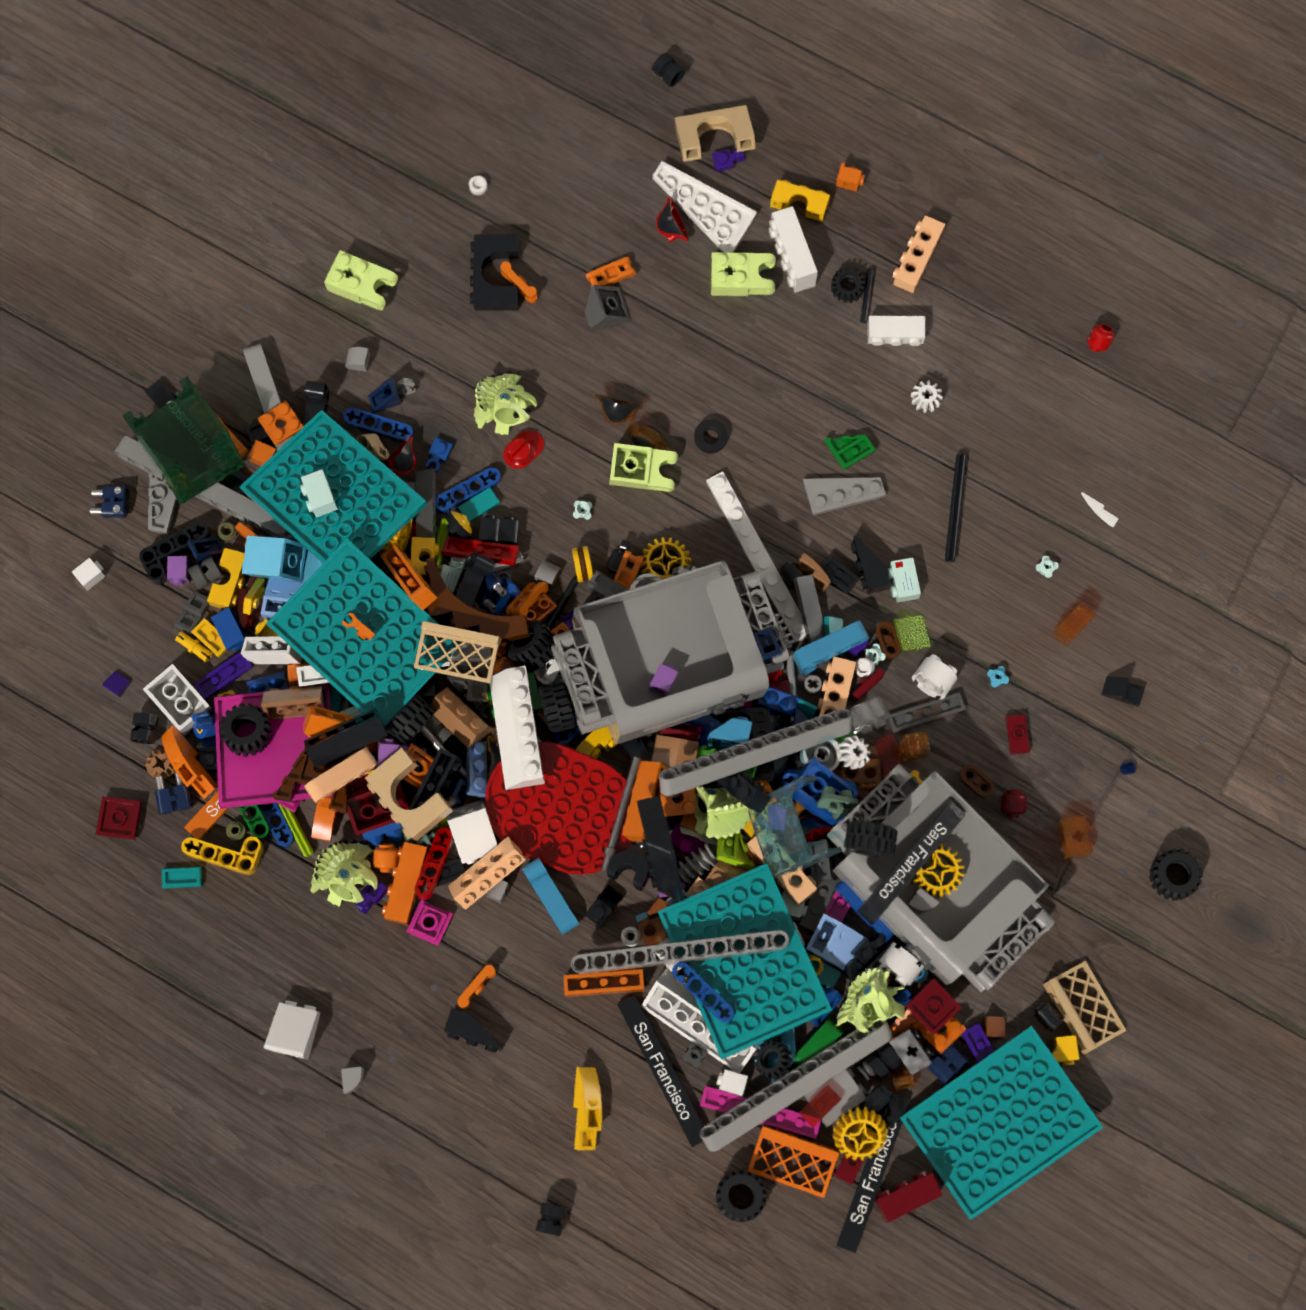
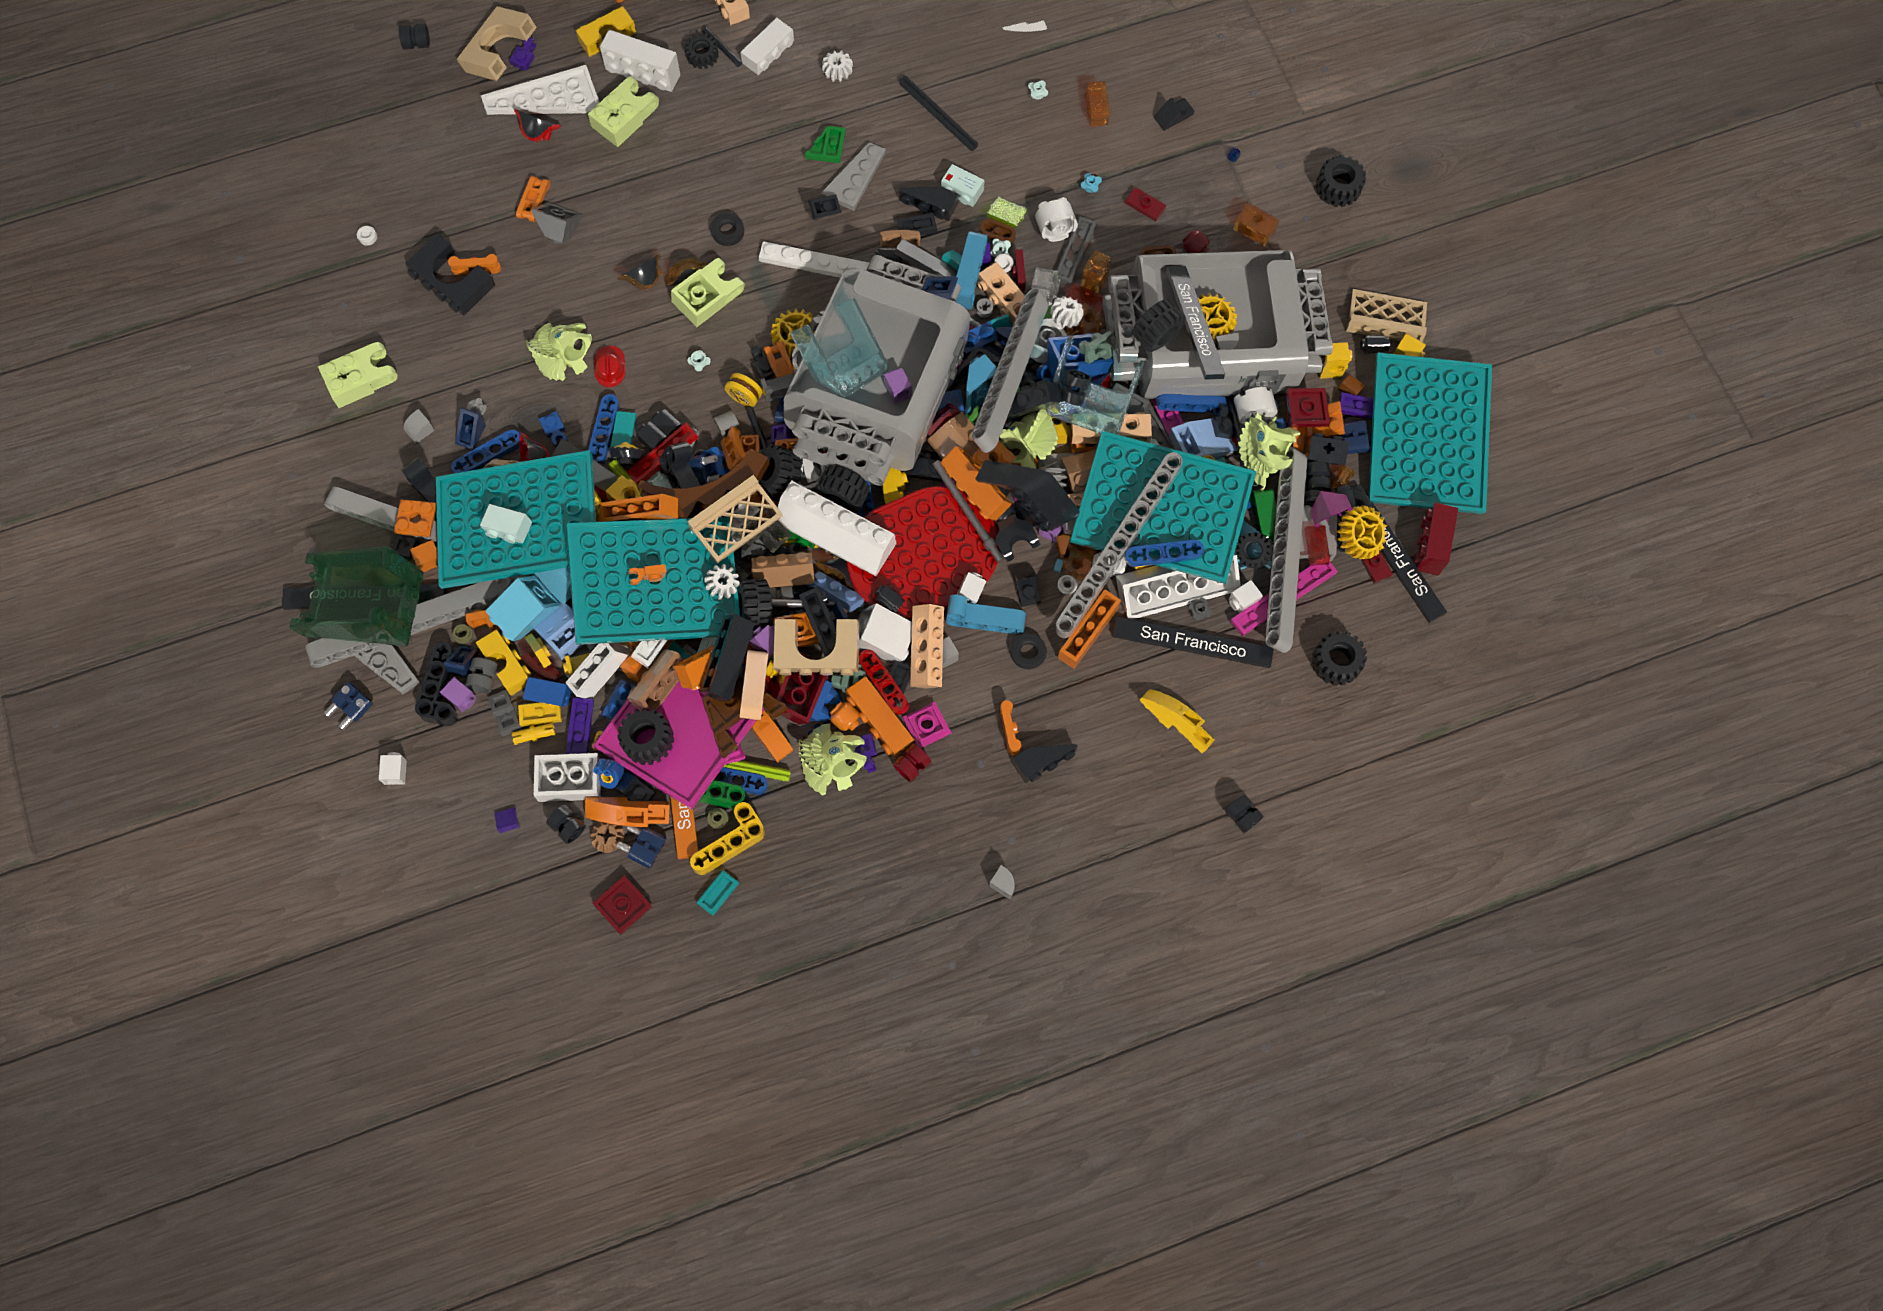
camera: 55 degrees left, 5 degrees down
(293, 1030) = (925, 897): white slope -> none
(389, 936) = (913, 761): none -> dark red wheel
(400, 677) = (727, 576): none -> white gear
(499, 814) = (889, 597): none -> black brick
(539, 950) = (1028, 663): none -> black tyre
(561, 867) = (971, 587): none -> white brick
(644, 634) = (853, 365): none -> clear light blue windscreen
(734, 851) = (1067, 454): lime wing -> none
(781, 813) = (1076, 383): none -> black wheel
(789, 492) = (824, 207): none -> black slope
(798, 1143) = (1336, 585): orange fence -> none
(852, 968) = (1229, 445): black tile -> none
(856, 1091) = (1328, 505): none -> magenta slope
(1000, 996) = (1335, 364): none -> yellow brick

